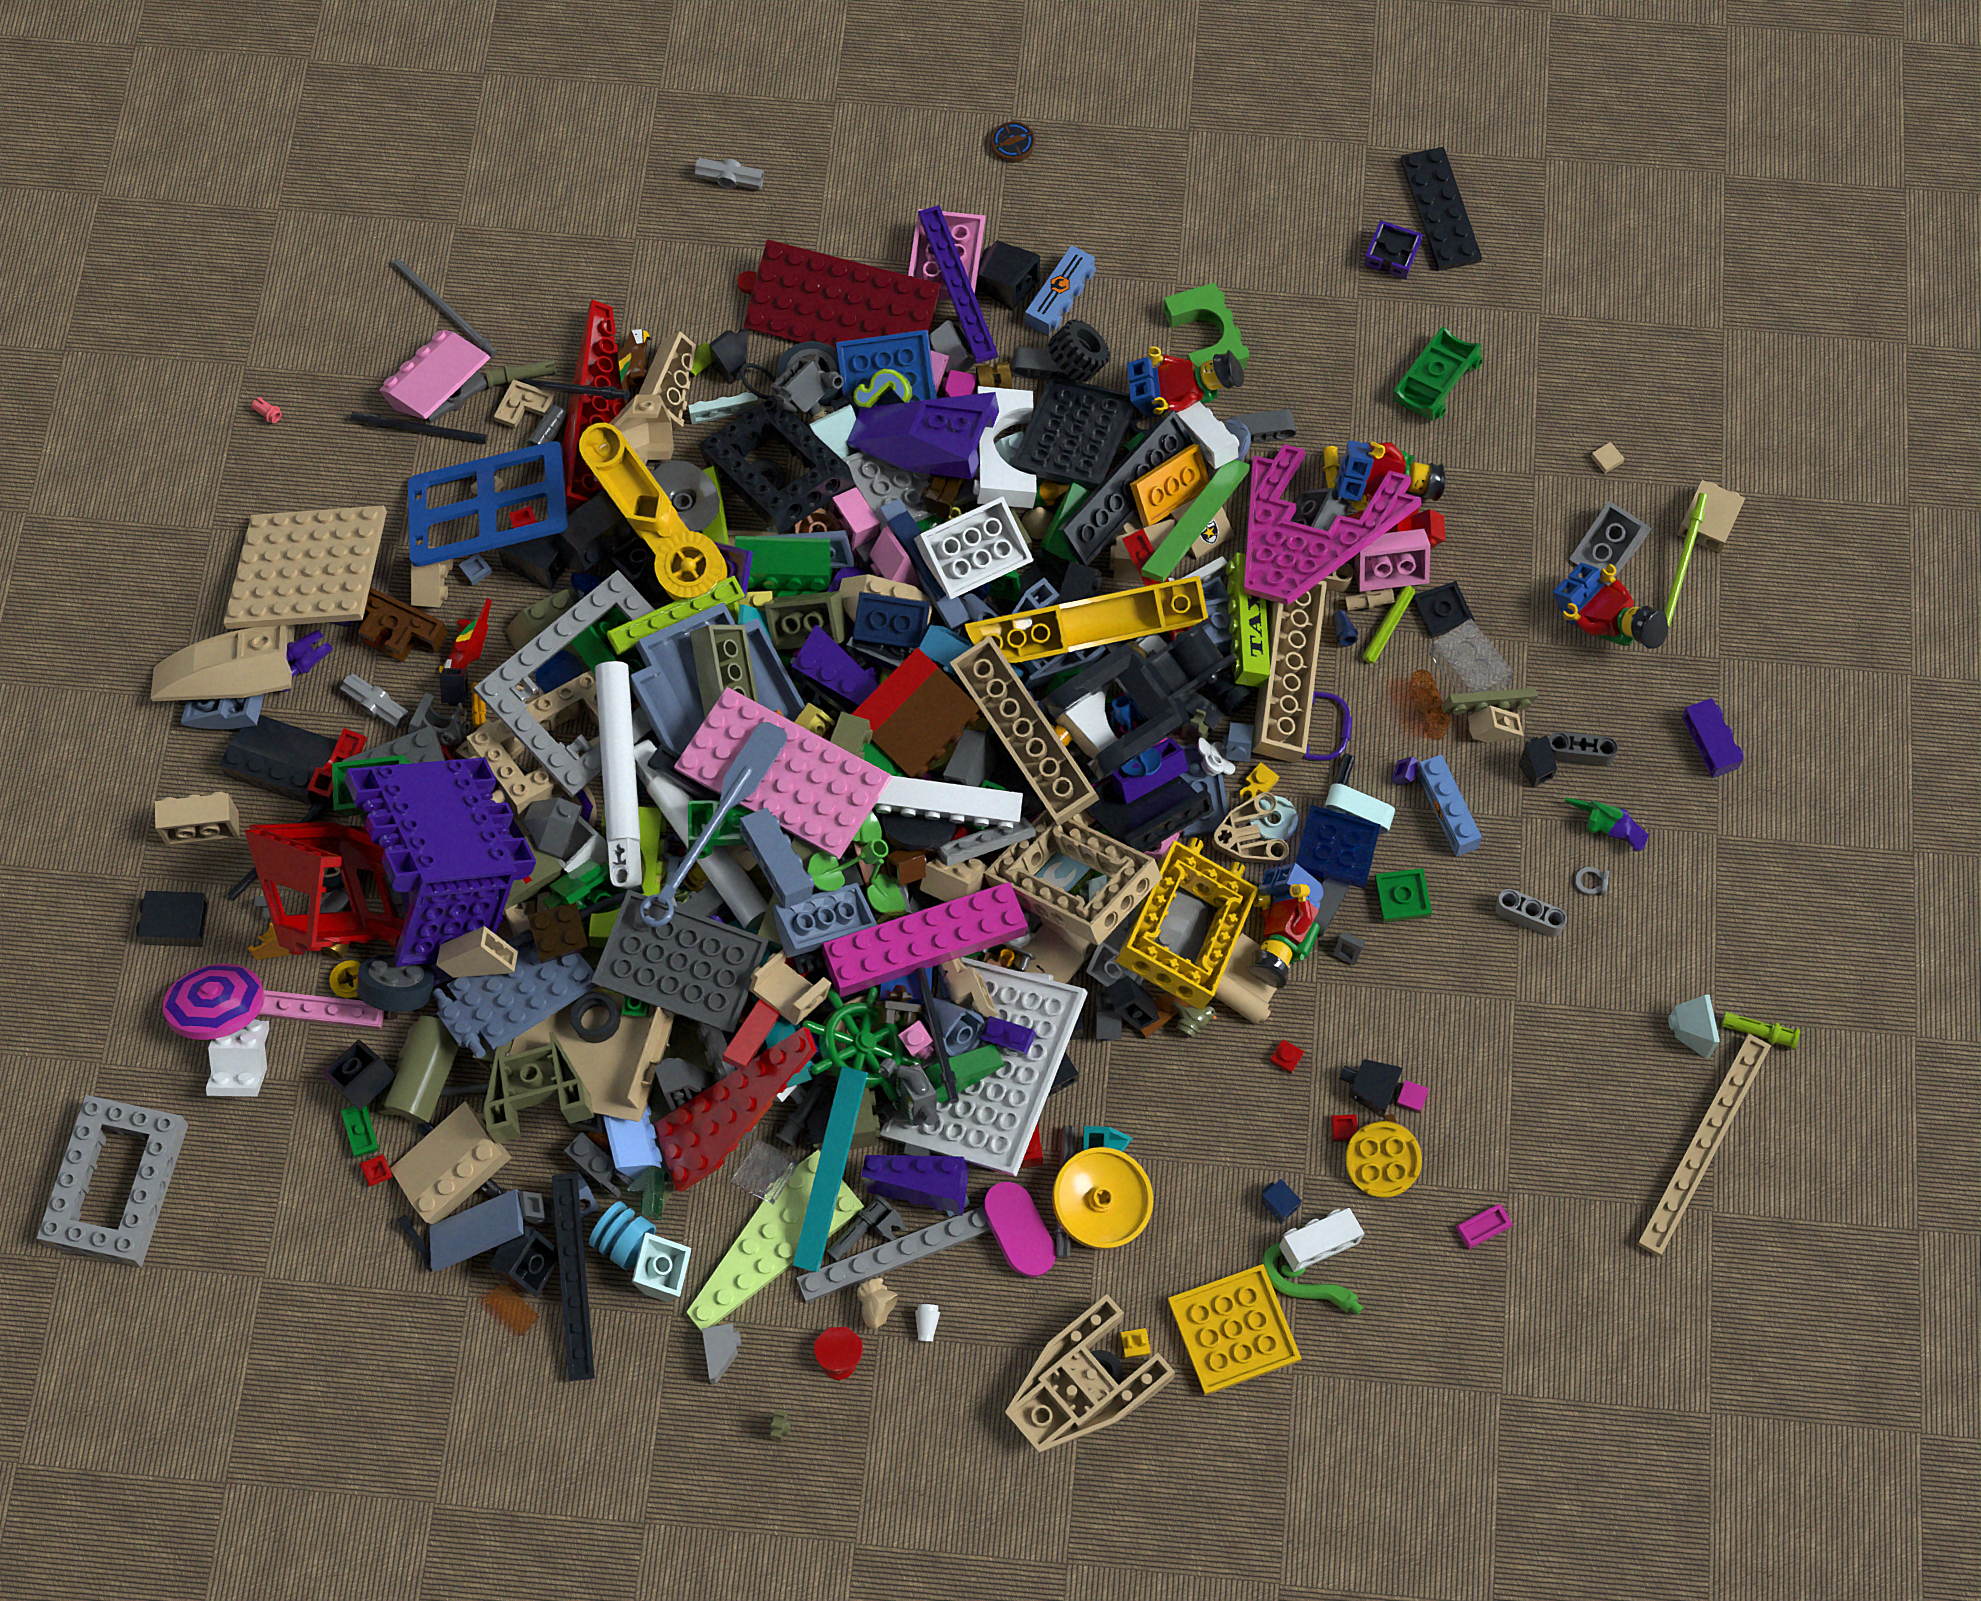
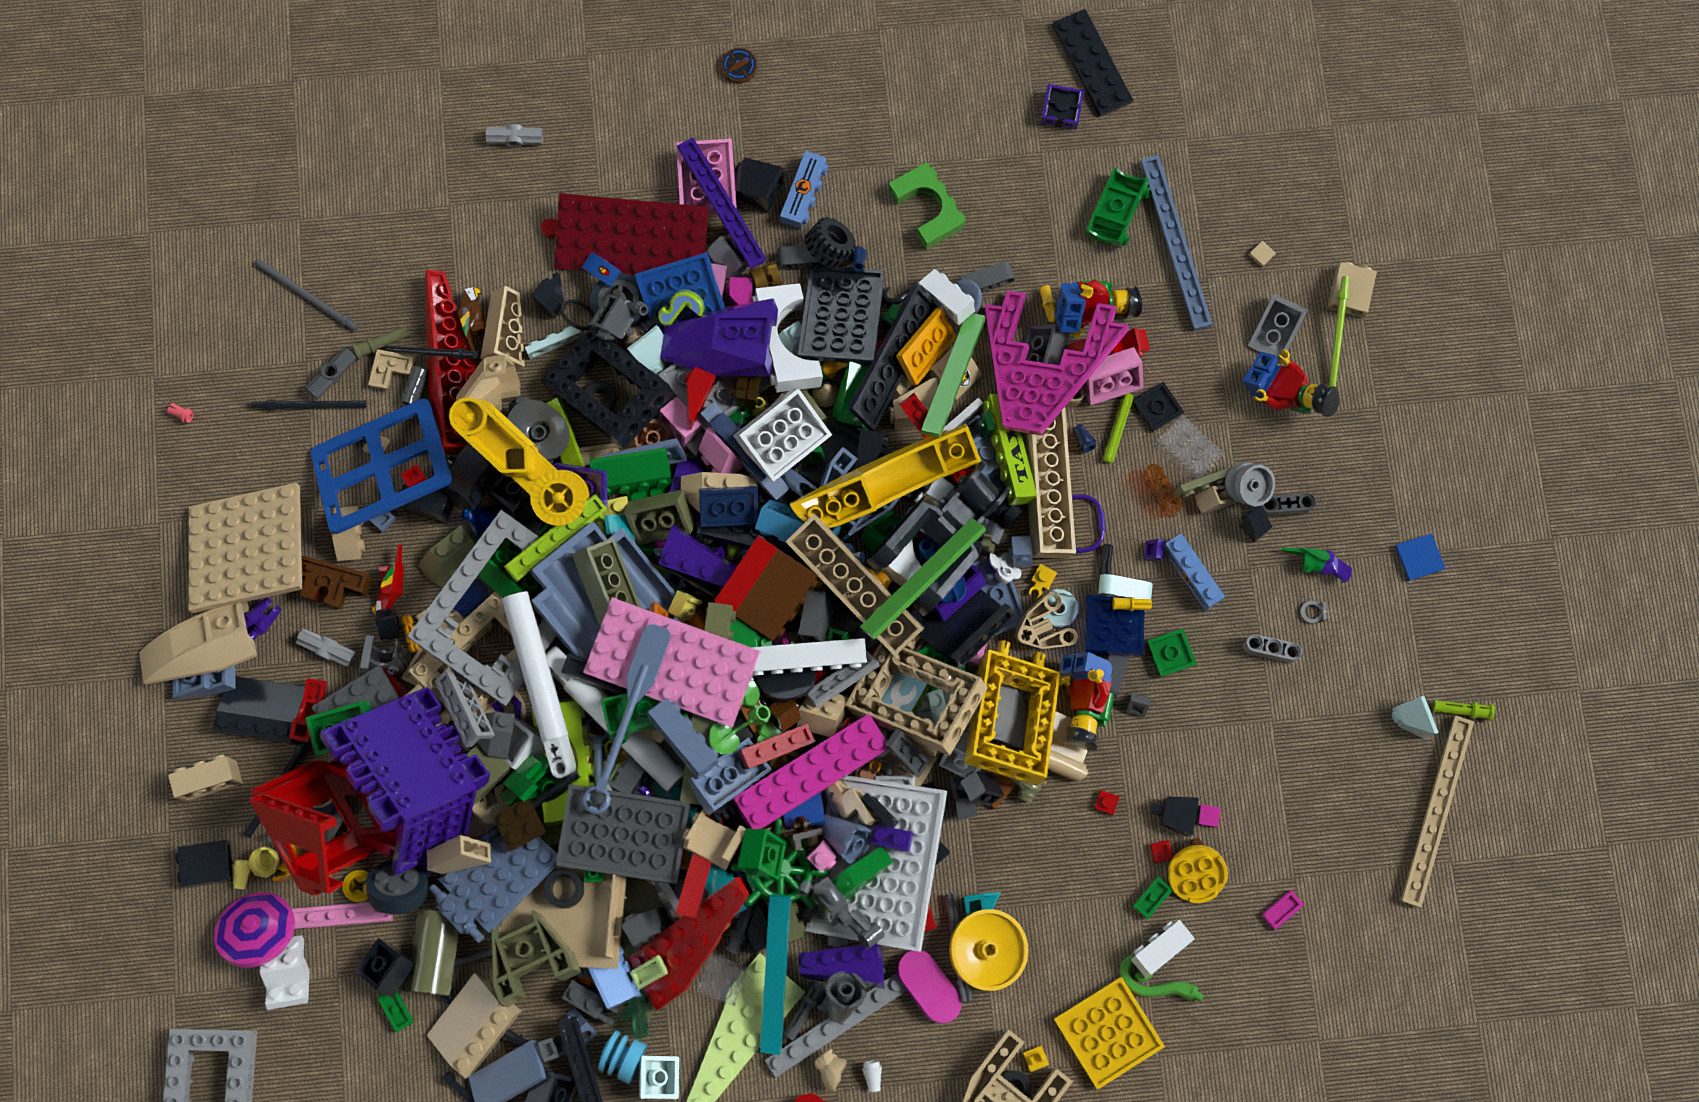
camera: 15 degrees left, 10 degrees up
(212, 937) = (240, 873): none -> light yellow cone
(243, 929) = (264, 862): none -> light yellow hair
(376, 1169) = (416, 1039): red tile -> none
(433, 374) = (311, 360): bright pink slope -> none
(519, 784) = (460, 706): none -> light grey fence
(676, 1137) = (648, 972): none -> yellowish green tile
(701, 359) = (527, 302): lime cone -> none
(798, 334) = (601, 269): none -> blue slope
(843, 1014) = (762, 854): none -> green slope
(884, 482) = (697, 391): none -> red slope
(888, 899) = (776, 746): none -> plate
(908, 1209) = (844, 995): none -> dark grey cone
(947, 1076) = (853, 886): black bar -> none
(952, 1137) = (867, 932): none -> dark grey piece
(1001, 1000) = (880, 810): none -> black tile
(1048, 940) = (907, 753): none -> dark grey plate
(1107, 732) = (922, 578): none -> bright green tile
(1110, 375) = (858, 258): none -> dark blue cone
(1179, 382) = (916, 256): piece -> none
(1224, 587) = (986, 425): none -> dark green plate
(1280, 1200) = (1124, 922): dark blue brick -> none
(1321, 1179) = (1152, 897): none -> green plate
(1362, 823) = (1131, 604): none -> yellow axle
(1369, 599) = (1099, 410): tan pin -> none
(1503, 427) = (1176, 243): none -> sand blue plate
(1538, 711) = (1250, 483): none -> light grey wheel
(1712, 737) = (1385, 476): dark purple brick -> none
(1739, 841) = (1420, 557): none -> blue tile

